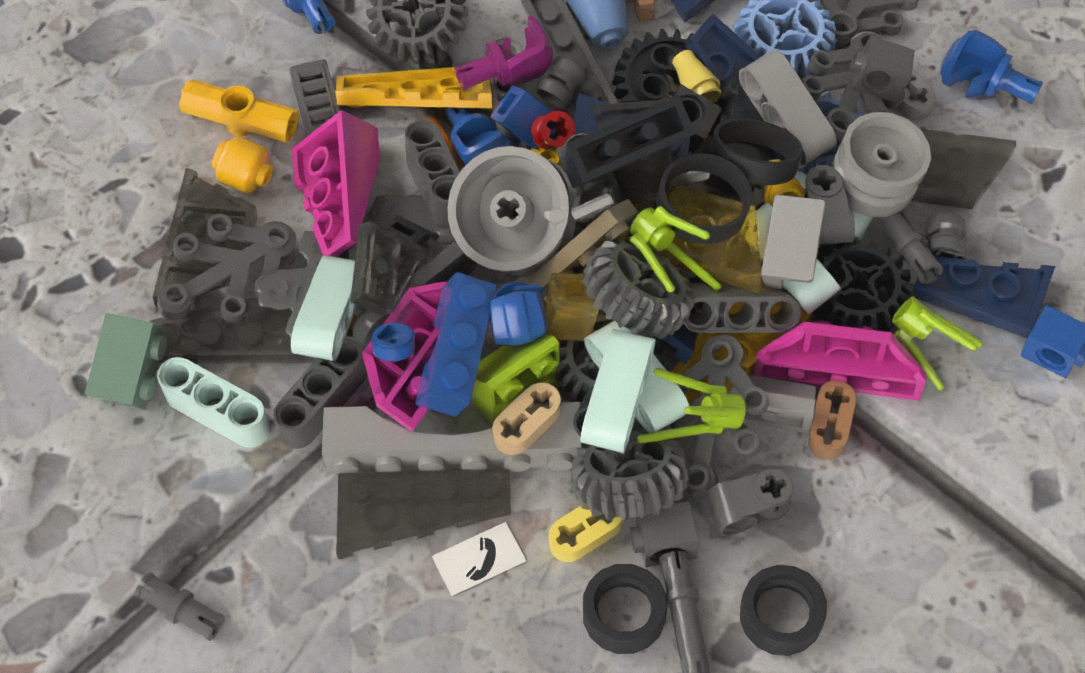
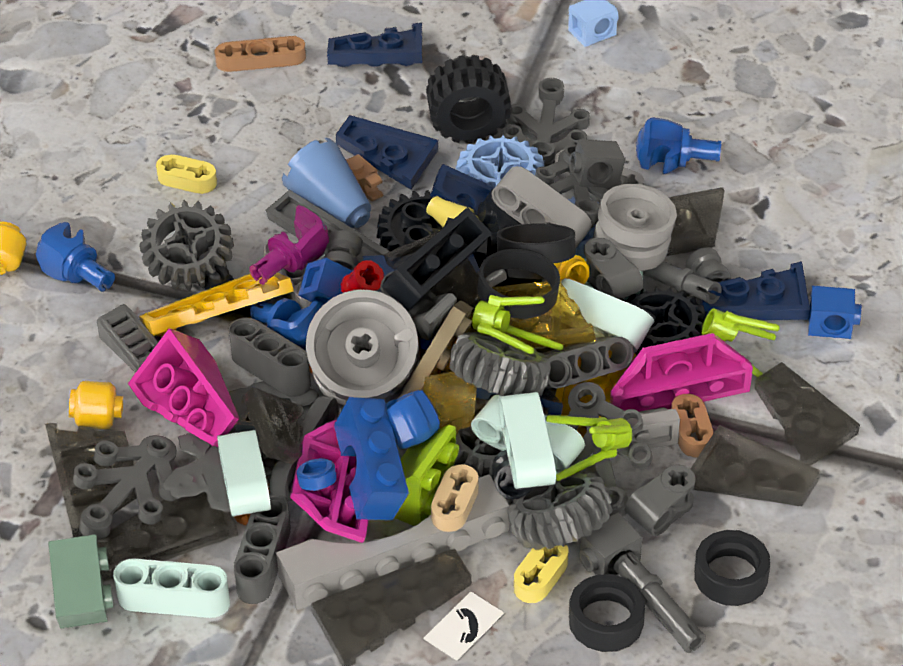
camera: 25 degrees left, 15 degrees down
(239, 110) = (67, 367): yellow piece -> none
(792, 240) = (604, 290): light grey panel -> none
(865, 501) = (751, 470): none -> clear smoke wing
(963, 456) = (805, 414): none -> clear smoke wing

